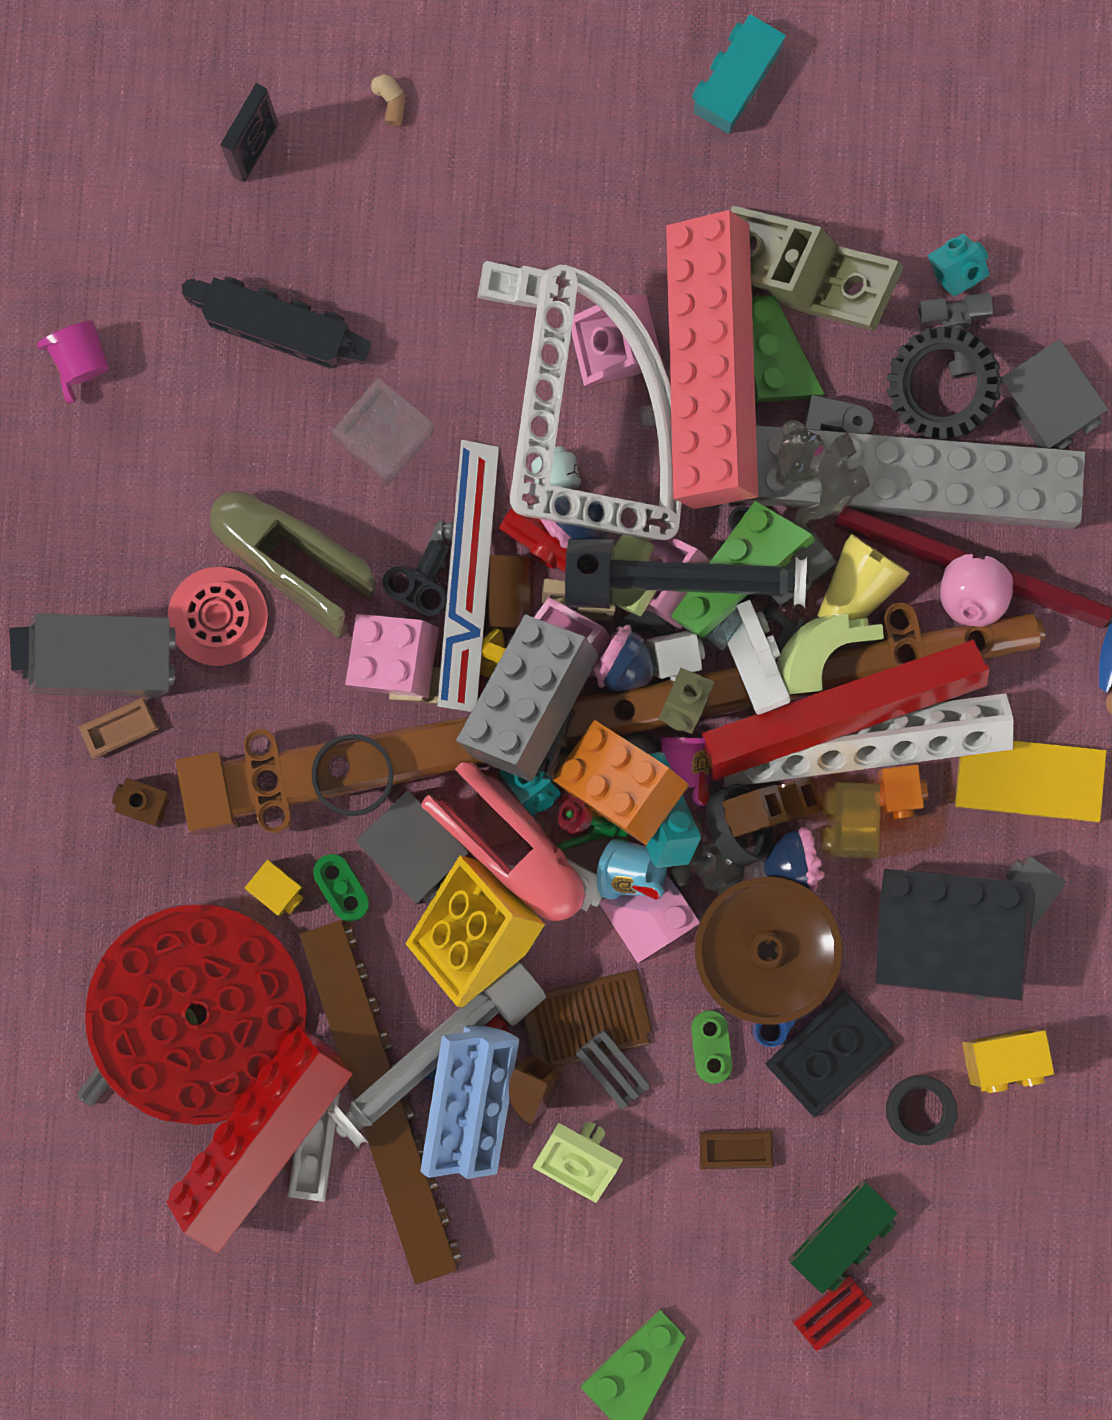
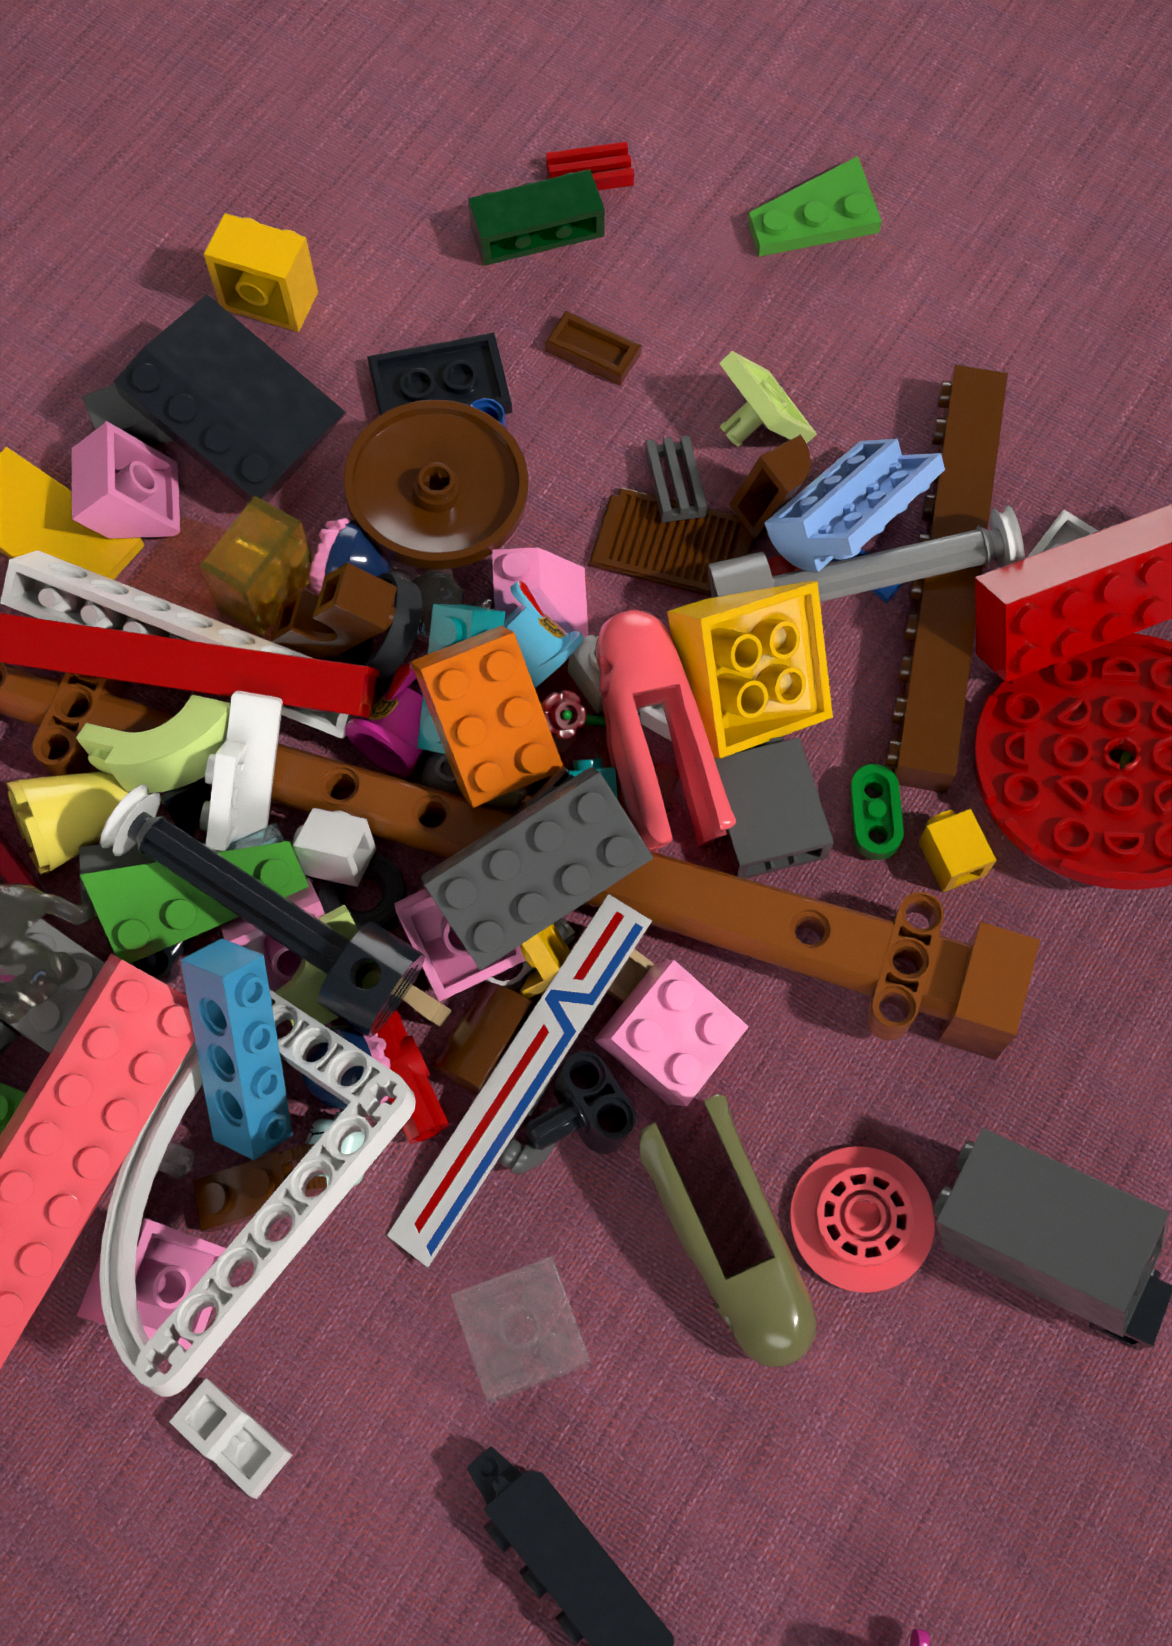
camera: 150 degrees left, 15 degrees down
(118, 728) = (1072, 1143): nougat tile -> none
(141, 802) = (1073, 1035): reddish brown brick -> none
(325, 748) = (816, 857): black tyre -> none
(592, 422) = (242, 1190): none -> reddish brown hinge
(625, 663) = (394, 861): dark blue hair -> none
(643, 485) = (237, 1047): none -> dark azure brick
(686, 701) = (354, 769): olive brick -> none
(711, 1047) = (558, 446): bright green plate -> none
(902, 791) = (180, 579): orange brick -> none
(948, 1117) = (376, 259): black tyre -> none
(989, 832) = (124, 486): none -> bright pink slope

